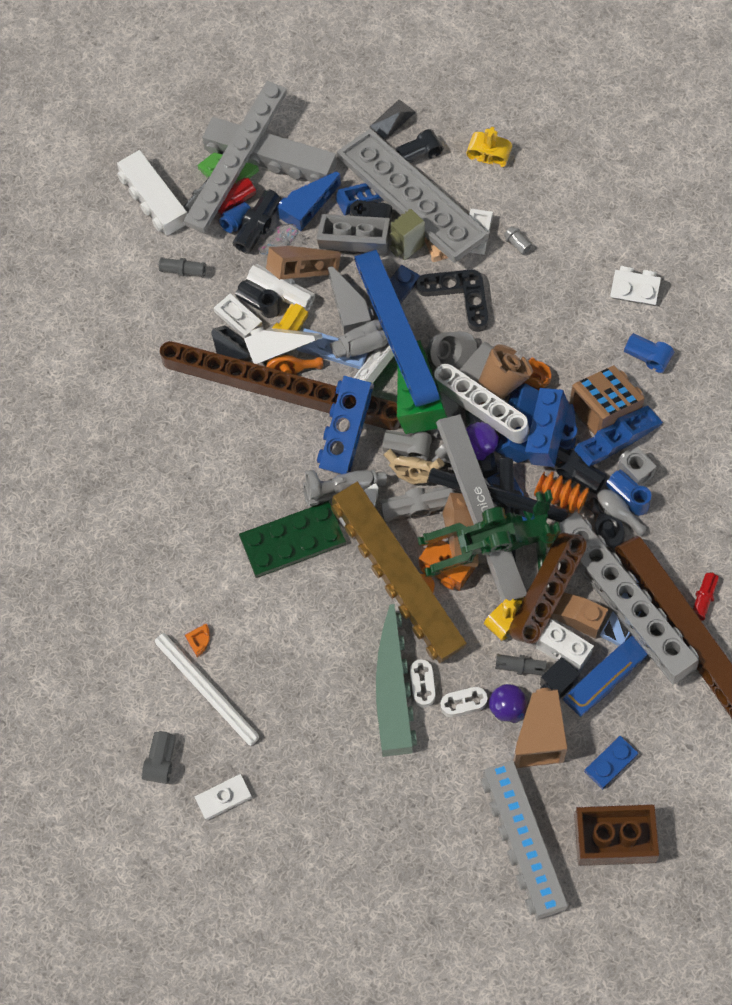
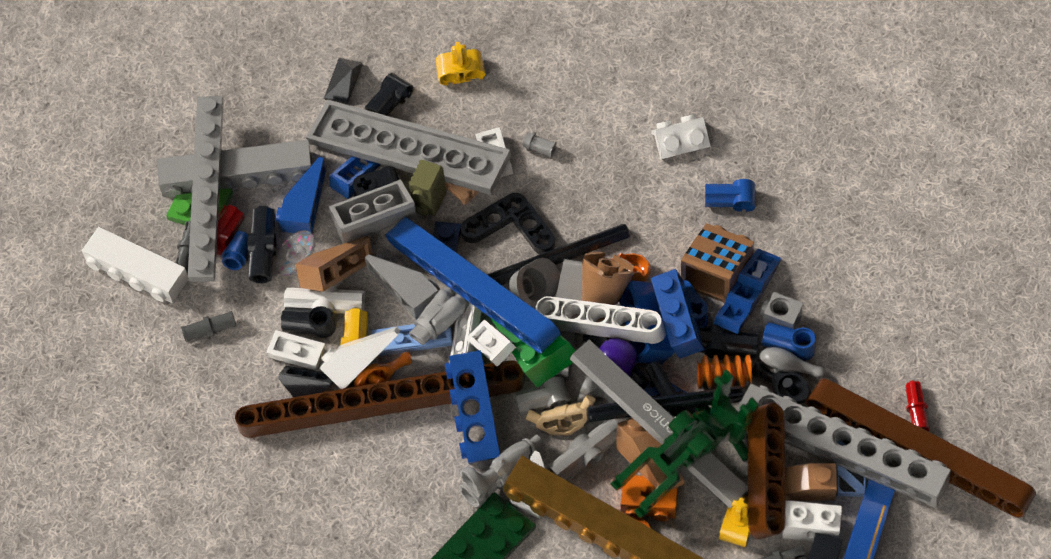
camera: 25 degrees left, 5 degrees down
(385, 381) = (491, 343): none -> white plate
(488, 336) = (567, 251): none -> black axle

